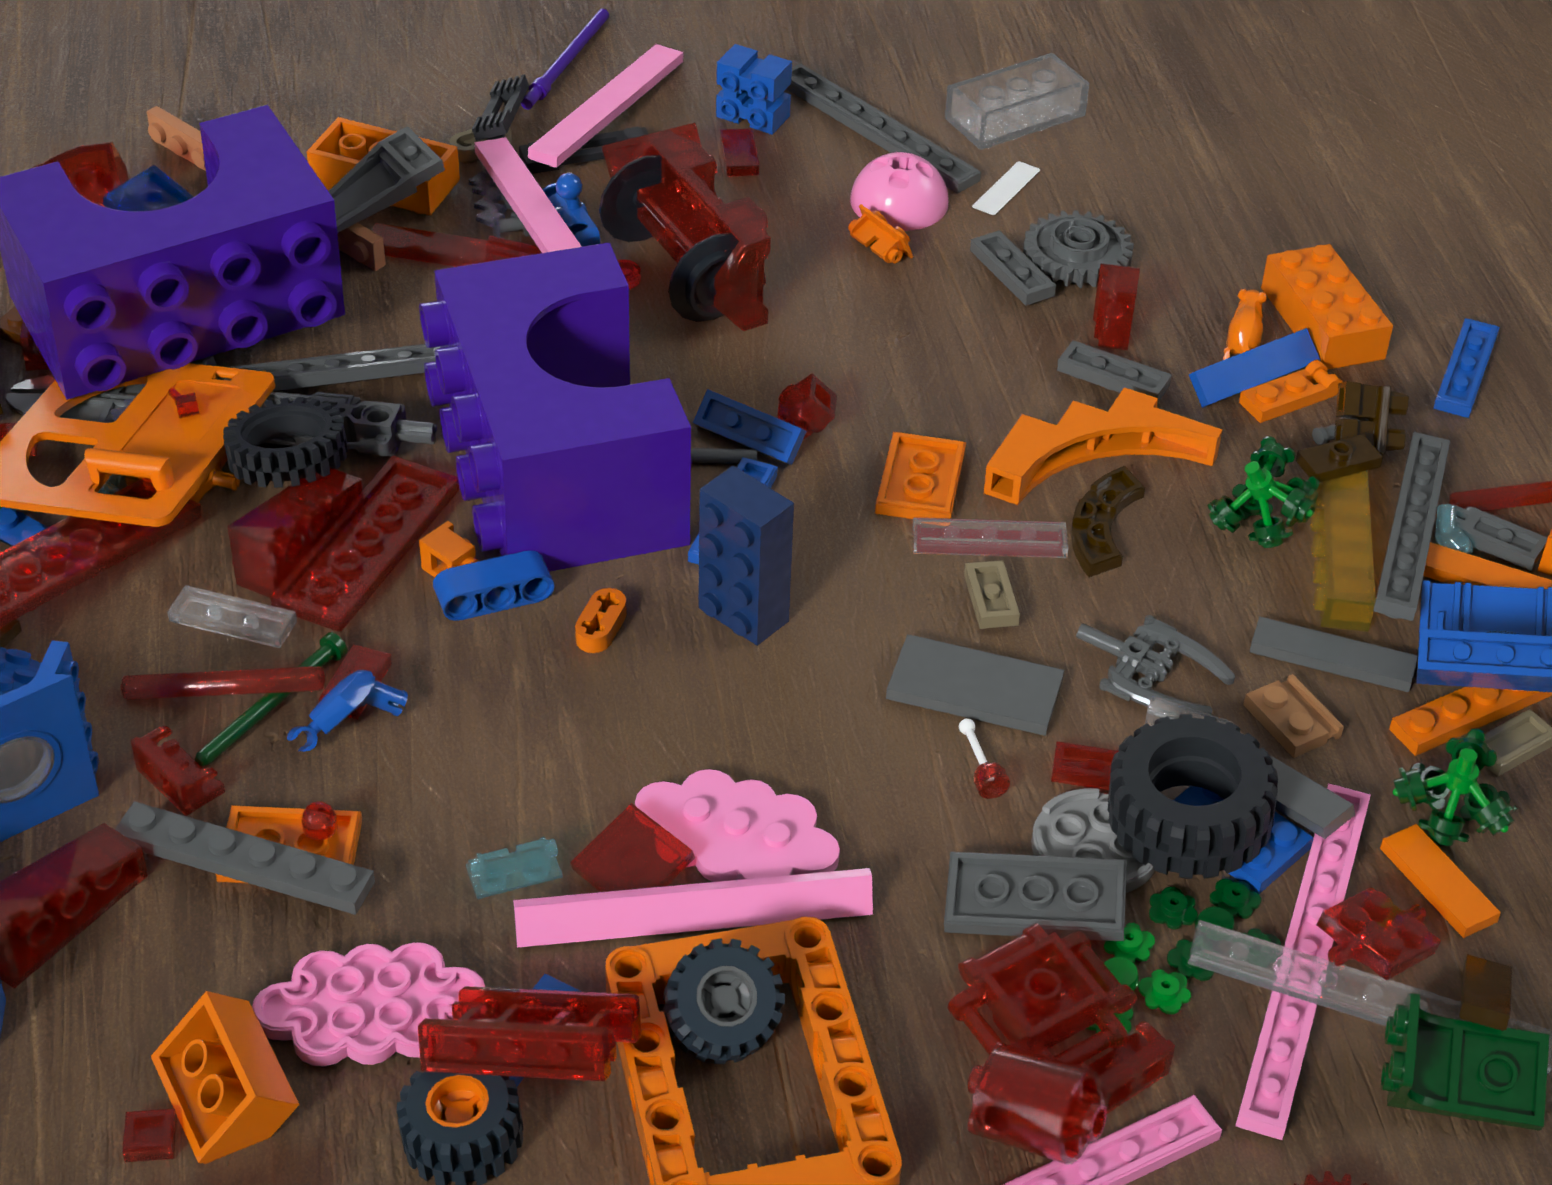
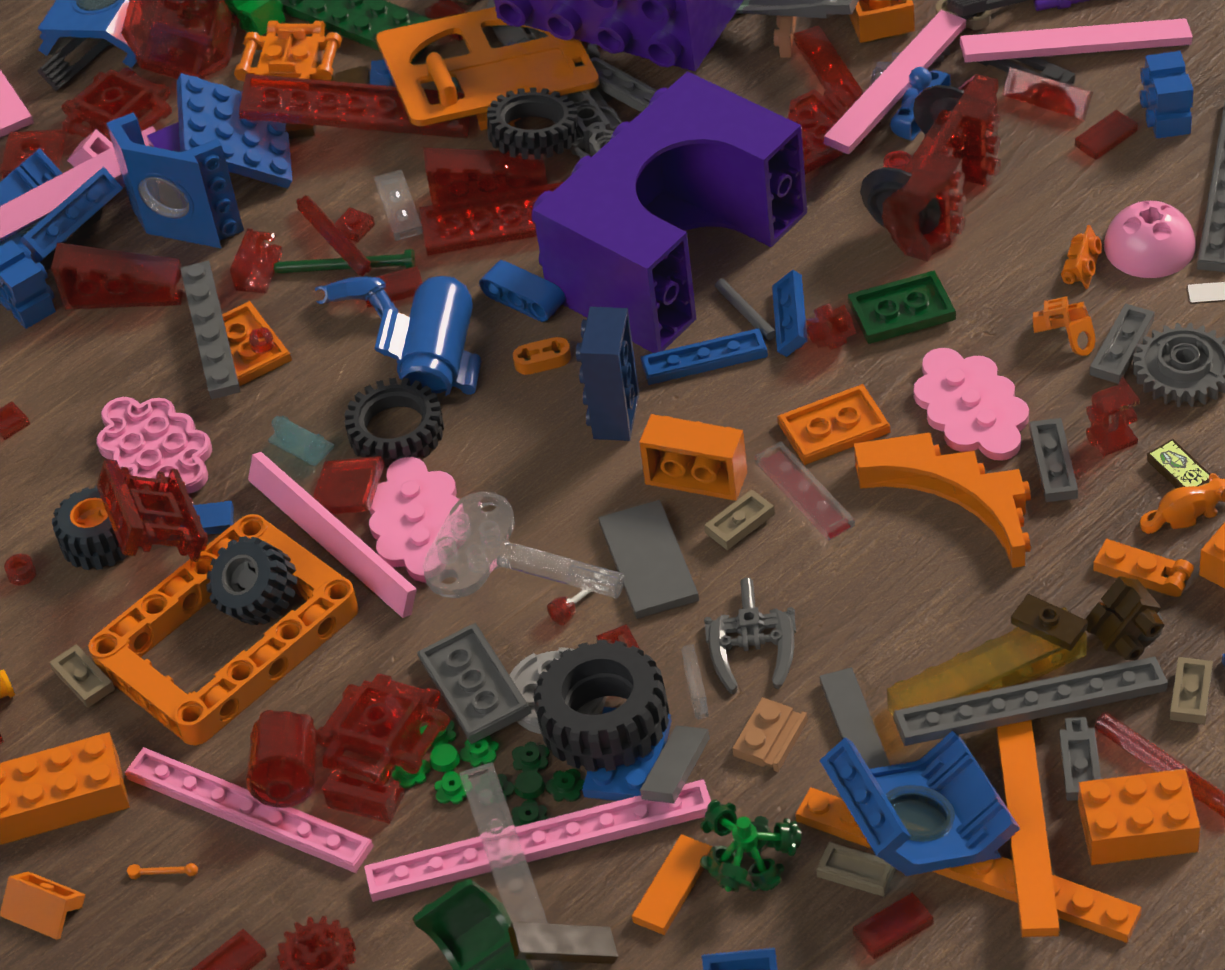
camera: 65 degrees right, 5 degrees up
(185, 403) = (528, 62): clear red hand -> none
(215, 658) = (355, 224): none -> clear red plate
(223, 1078) = (60, 421): orange slope -> none
(445, 550) = (526, 253): orange brick -> none
(500, 670) = (433, 337): none -> blue piece
(571, 739) = (388, 397): none -> black tyre
(825, 350) = (901, 307): none -> dark green plate
(853, 797) = (477, 543): none -> clear piece
(893, 573) = (693, 457): none -> orange brick
(941, 279) = (1074, 317): none -> orange piece
(986, 384) = (971, 404): none -> bright pink plate
(1094, 517) = (880, 532): dark brown tile -> none
(1193, 315) = (1177, 465): none -> tile
(1252, 498) = (963, 600): dark green plant -> none
(1254, 367) = (1141, 531): blue tile -> none
(1378, 933) = (574, 865): clear red plate -> none
(1448, 533) = (1046, 732): clear light blue arm -> none
(1465, 435) = (1191, 690): none -> dark tan plate

